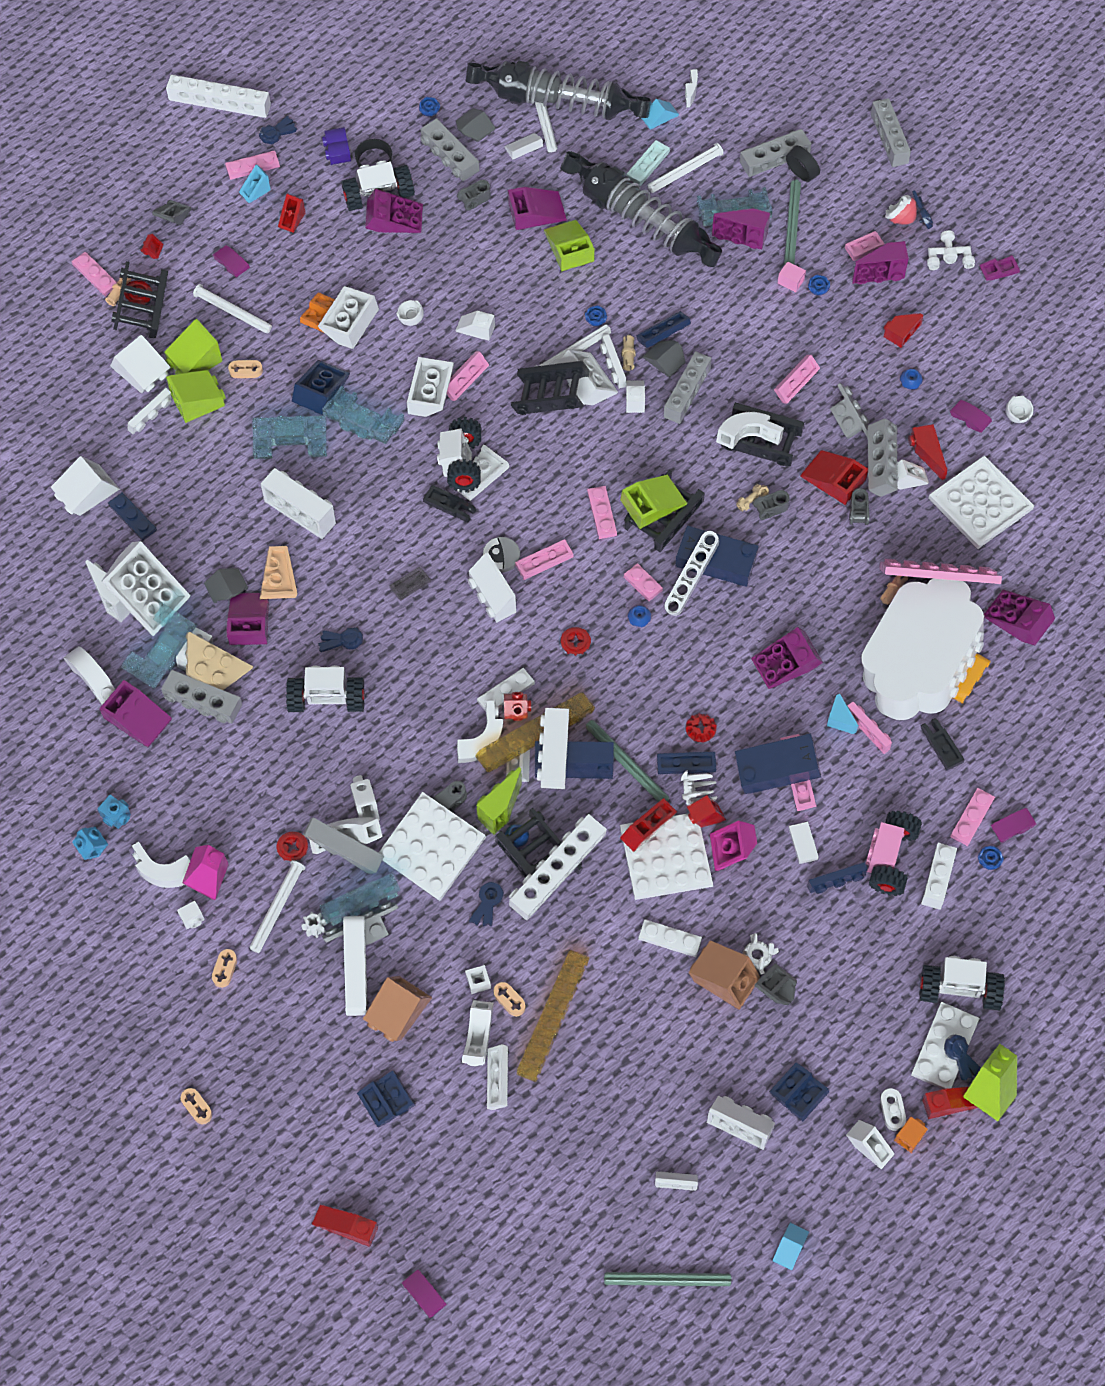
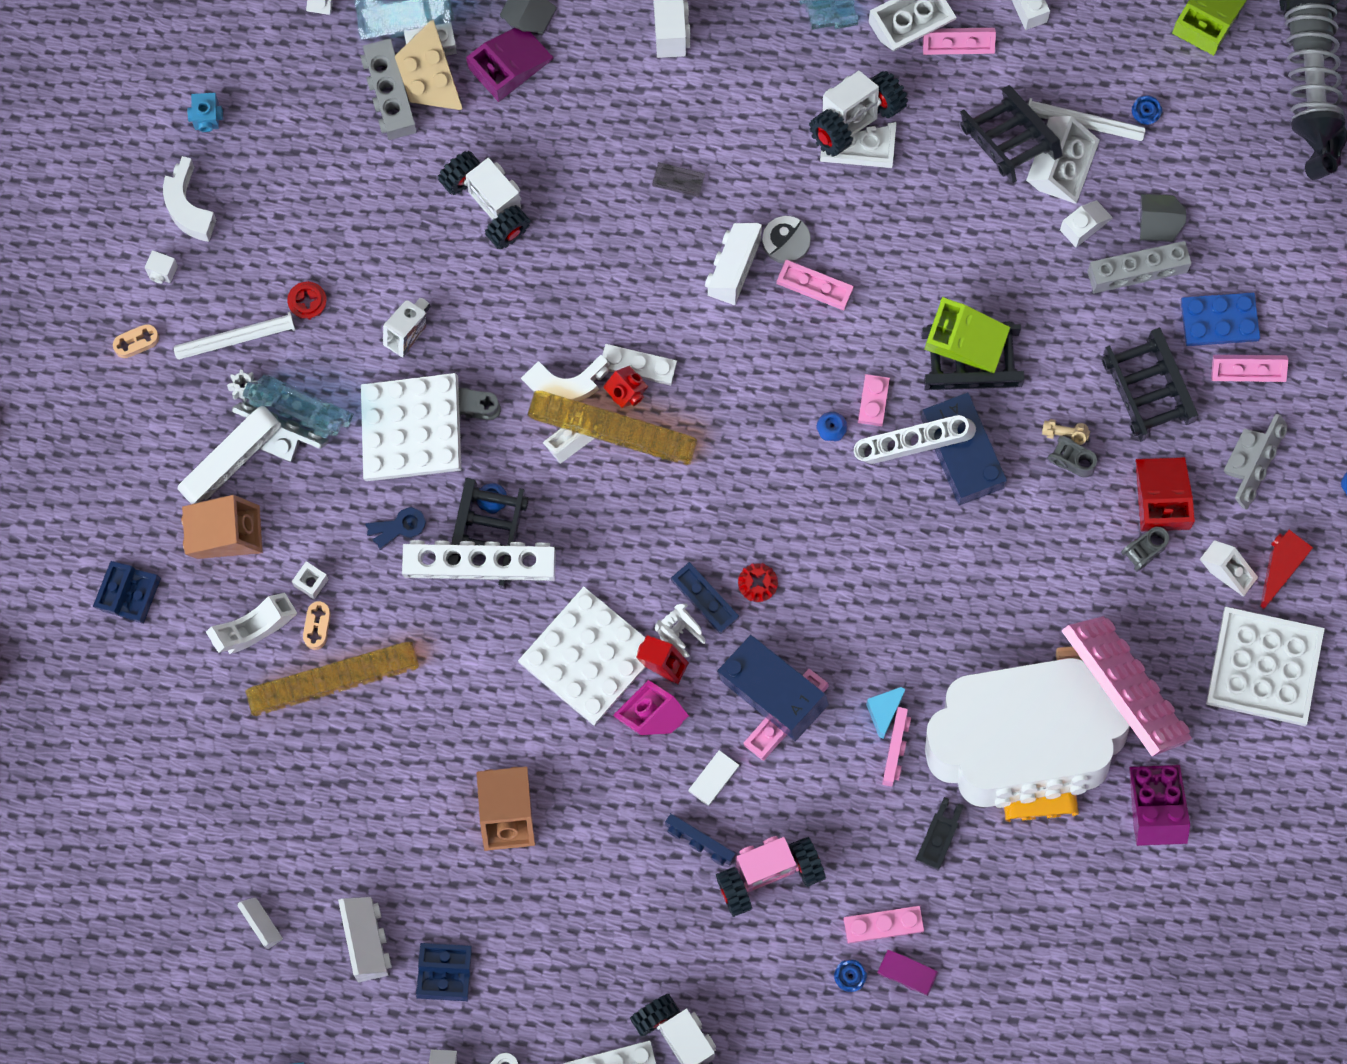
camera: 50 degrees right, 10 degrees up
(89, 843) = (156, 116): dark azure brick -> none
(135, 714) = (319, 45): magenta slope -> none
(206, 871) = (211, 244): dark pink slope -> none
(278, 575) = (577, 51): light nougat wing -> none
(343, 845) = (338, 345): light grey slope -> none
(349, 639) = (568, 173): dark blue piece -> none
(360, 829) = (359, 335): white arch -> none
(448, 503) = (798, 141): black hinge -> none
(497, 806) = (508, 455): lime slope -> none
(497, 1077) = (228, 676): white plate -> none
(554, 748) = (594, 459): white brick -> none
(582, 636) = (750, 376): red gear -> none
(585, 759) = (611, 487): dark blue brick -> none
(602, 512) = (919, 298): bright pink plate -> none
(613, 362) = (1104, 169): white plate -> none
(625, 760) = (658, 540): sand green axle -> none
(628, 353) = (1130, 177): tan pin -> none
(648, 824) = (600, 613): red slope -> none
(663, 329) = (1190, 189): dark blue plate -> none
(667, 1279) = (157, 989): sand green axle -> none
(670, 938) = (504, 727): white plate -> none
(748, 425) = (1139, 359): white arch -> none
(753, 373) = (1220, 319): none -> blue plate
(767, 952) = (559, 835): white piece -> none
(777, 985) = (535, 868): dark grey slope -> none
(787, 658) = (906, 608): magenta slope -> none
(882, 457) = (1222, 526): light grey brick -> none
(939, 876) = (784, 938): white brick -> none

